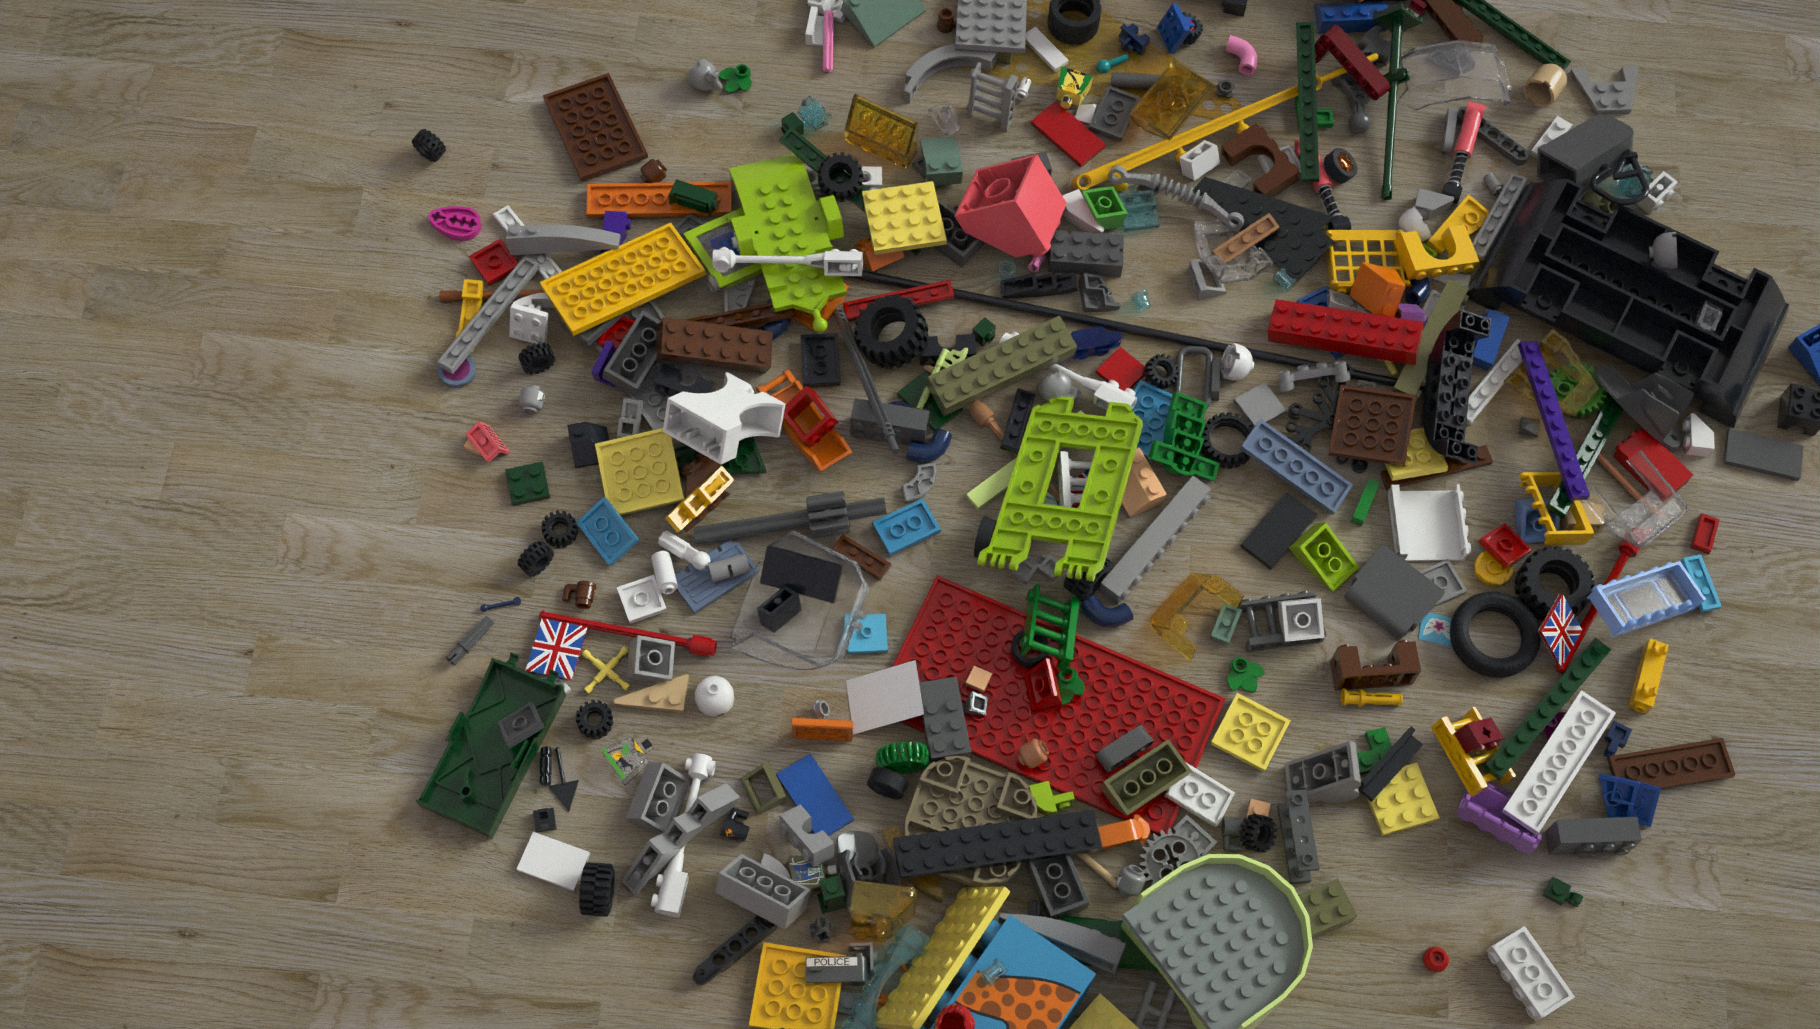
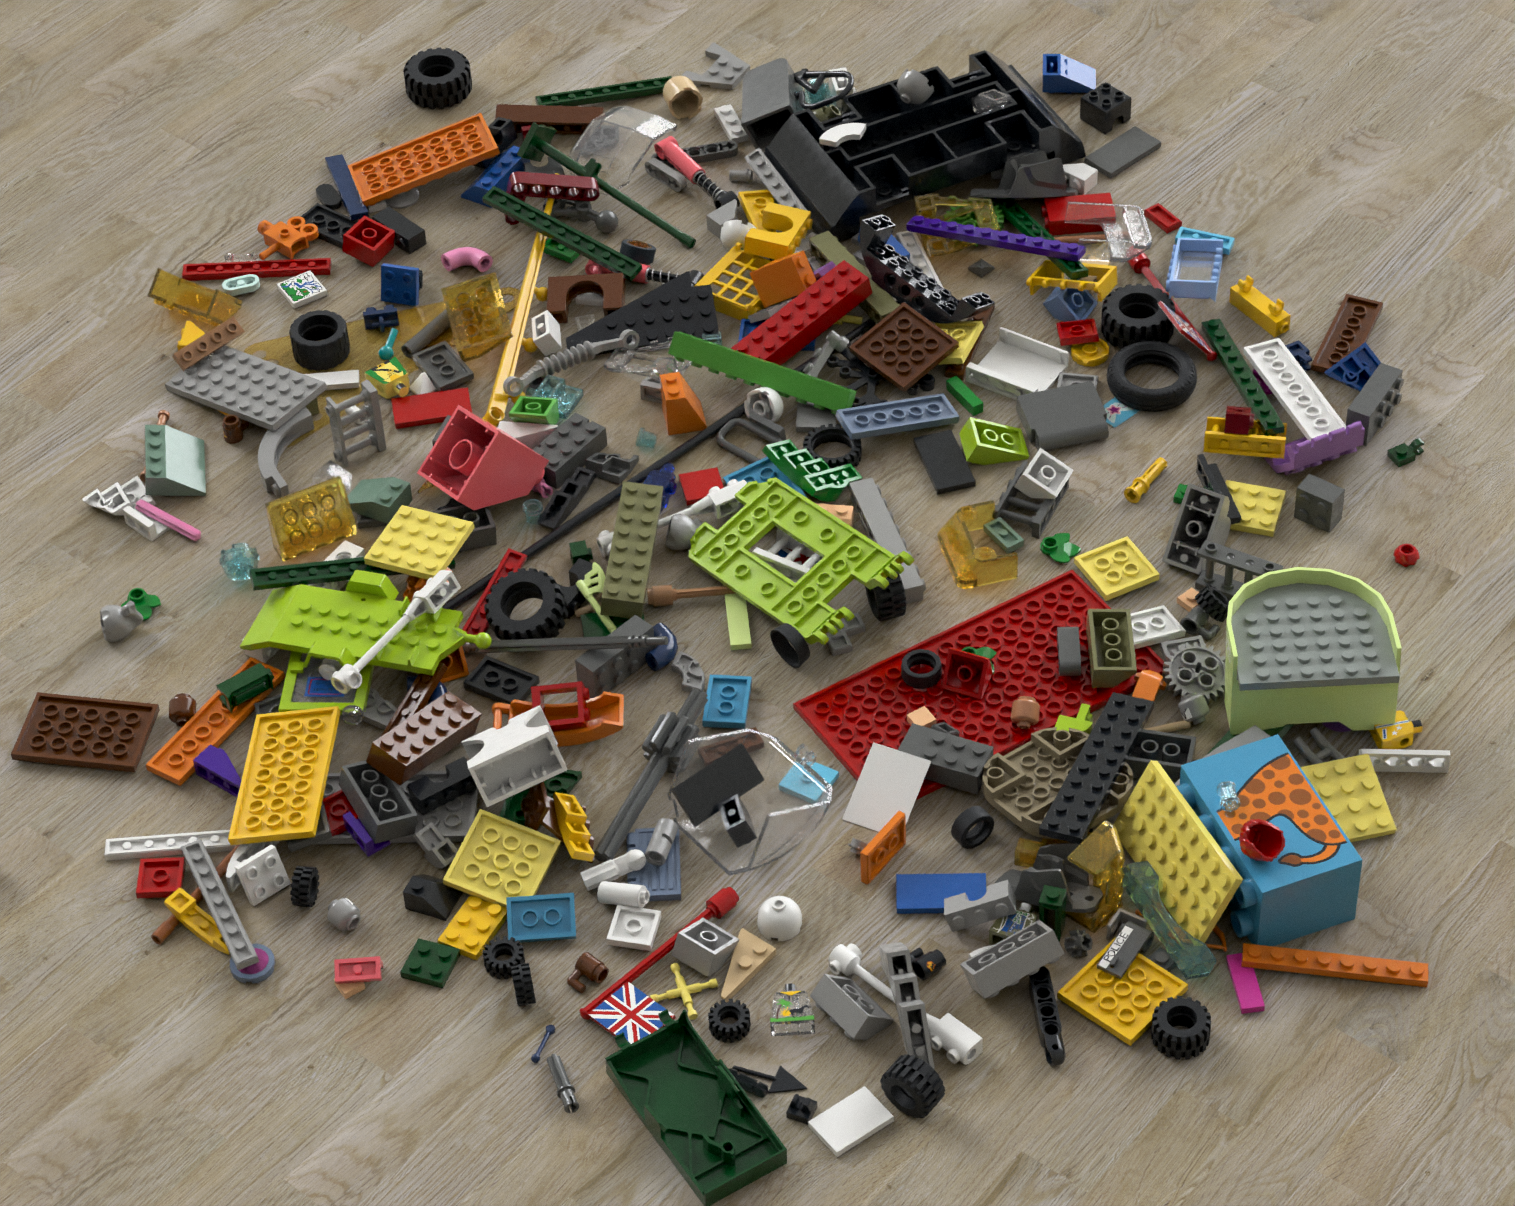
camera: 50 degrees left, 20 degrees down
(456, 231) = (90, 896): dark pink piece -> none
(520, 725) = (695, 1068): dark grey tile -> none
(558, 238) = (190, 807): light grey slope -> none
(575, 490) = (473, 926): none -> yellow plate
(767, 770) = (904, 914): olive tile -> none
(793, 121) = (234, 586): dark green plate -> none
(845, 163) = (336, 548): black tyre -> none
(903, 757) = (957, 797): green gear -> none
(1017, 421) = (691, 574): black tile -> none
(1067, 624) = (915, 629): green fence -> none
(1106, 616) = (930, 608): dark blue cylinder -> none
(1167, 364) = (728, 457): black tyre -> none
(1189, 303) = (680, 405): none -> orange slope
(1246, 238) = (655, 335): medium nougat plate -> none
(1263, 339) = (760, 372): none -> bright green brick
(1401, 669) = (1134, 446): reddish brown plate -> none
(1435, 855) = (1319, 503): none -> dark grey brick
(1530, 974) = (1461, 504): white bracket -> none
(1571, 230) = (842, 133): none -> white tile

